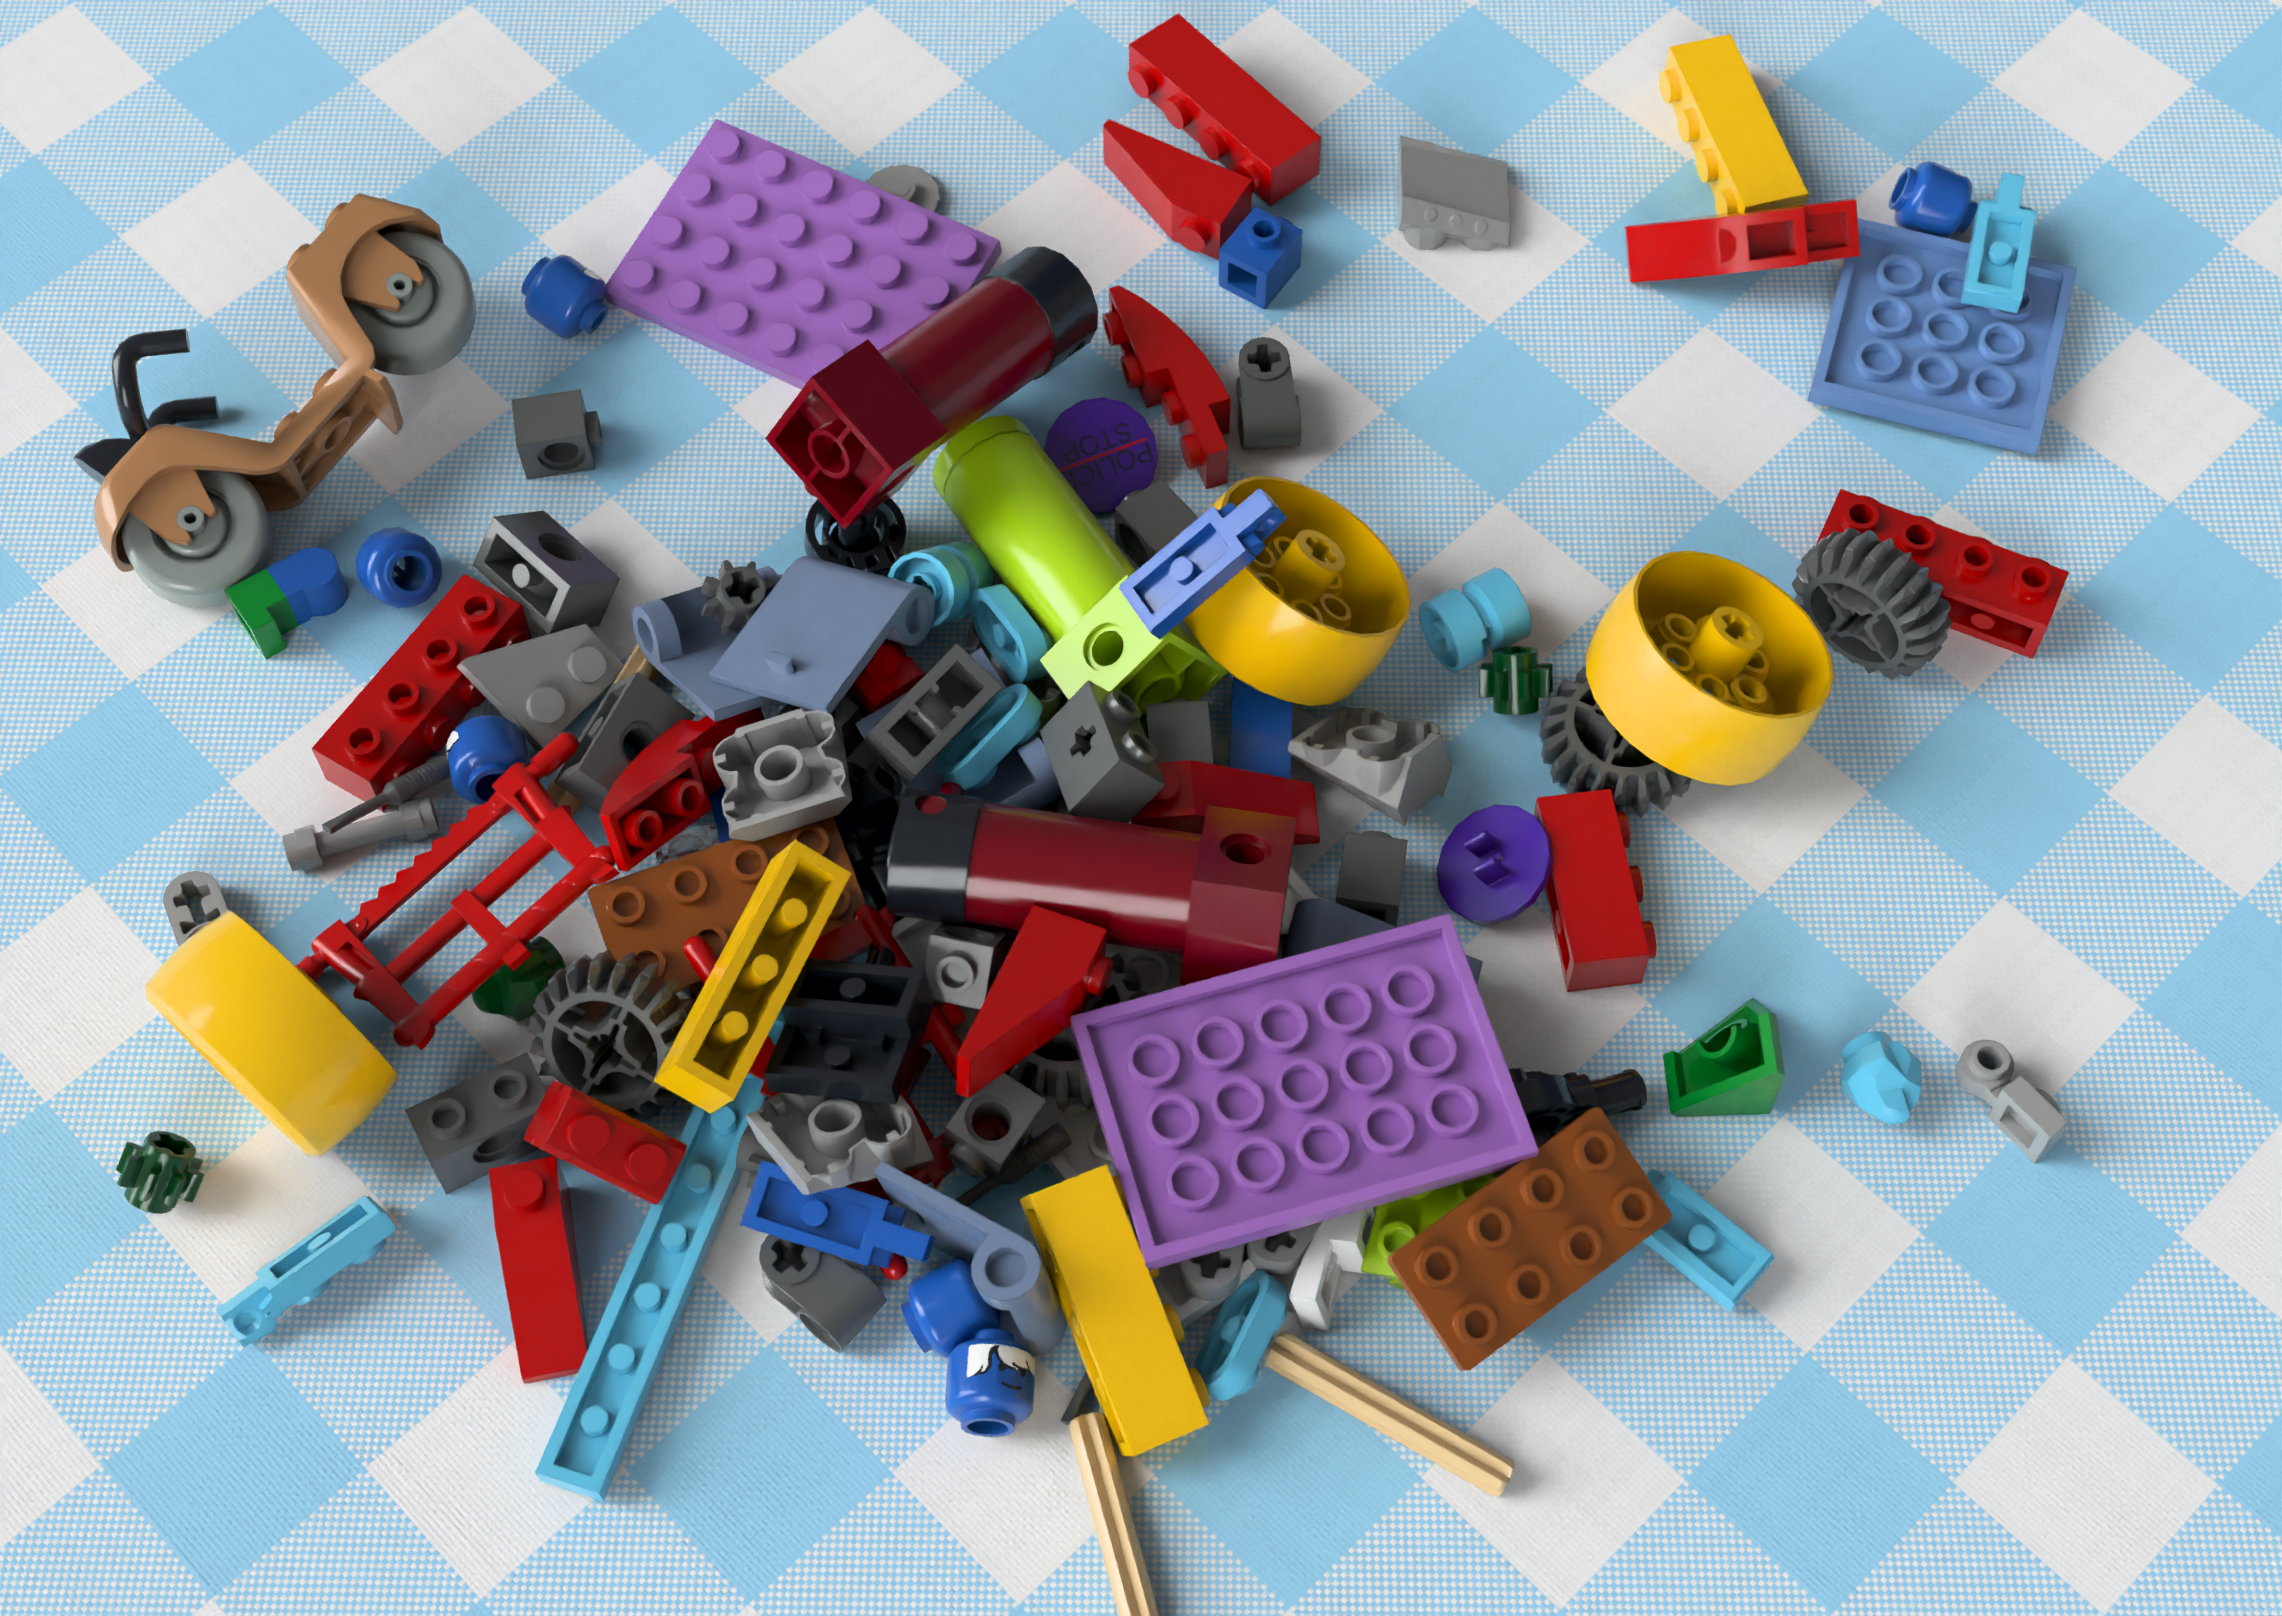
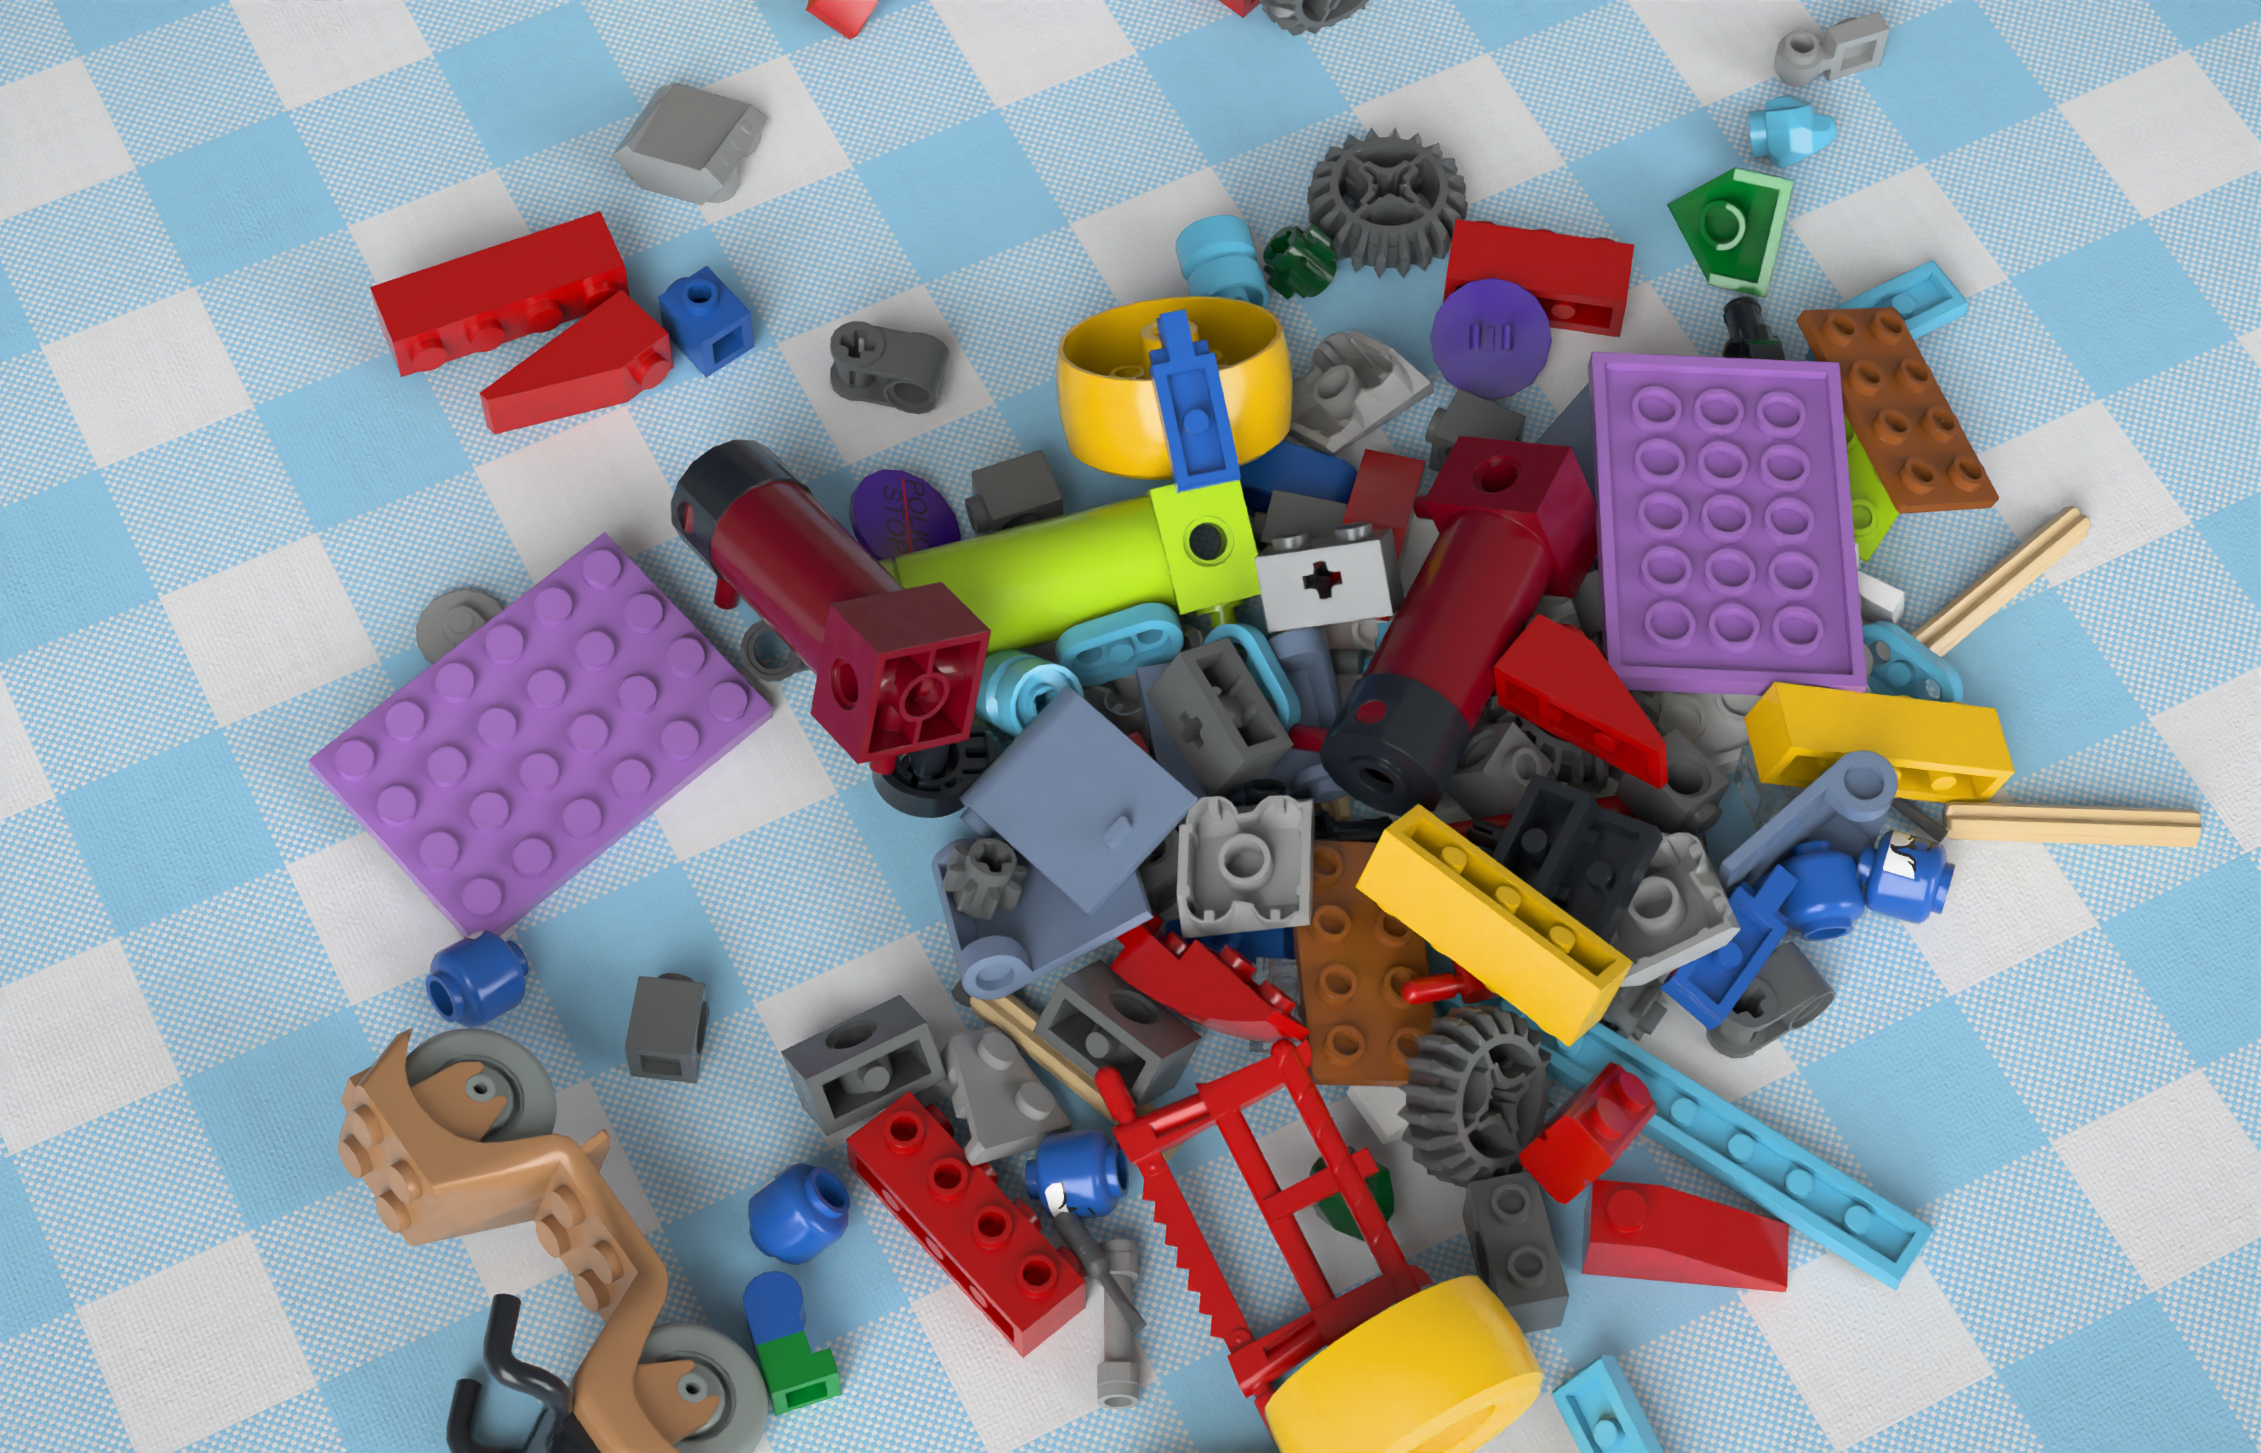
camera: 75 degrees left, 0 degrees up
(1172, 373) = (851, 427): red slope -> none
(1729, 637) = (1370, 96): yellow wheel -> none

